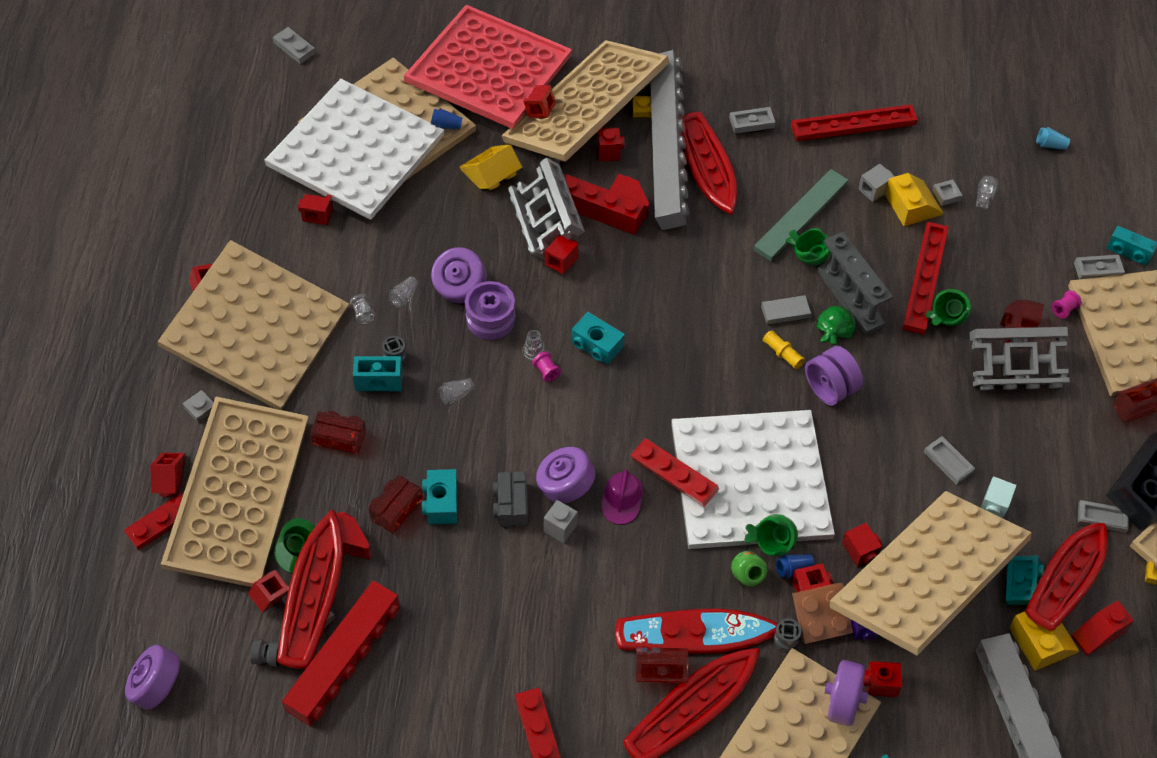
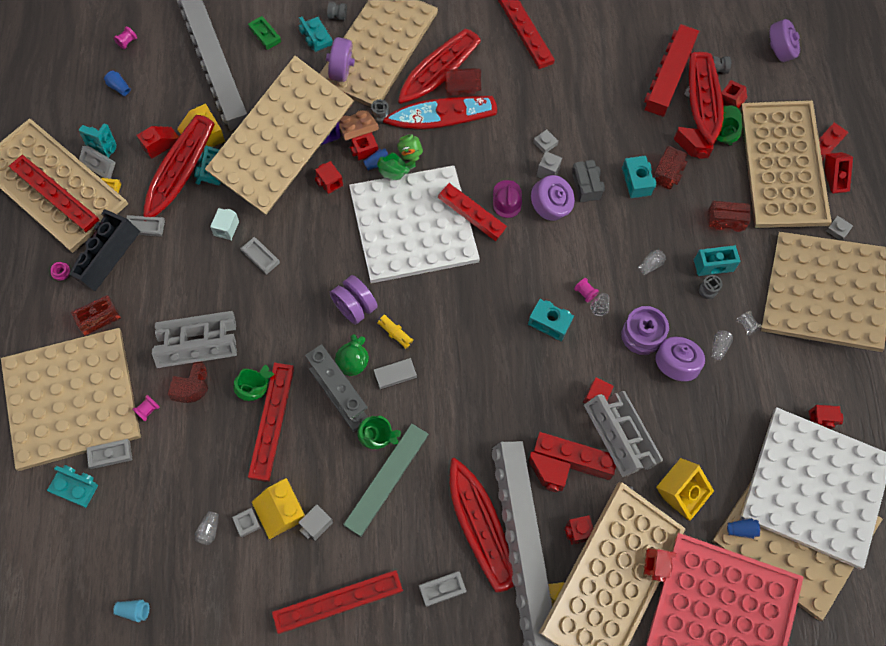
camera: 170 degrees right, 10 degrees up
(555, 569) = (545, 141): none -> light grey plate

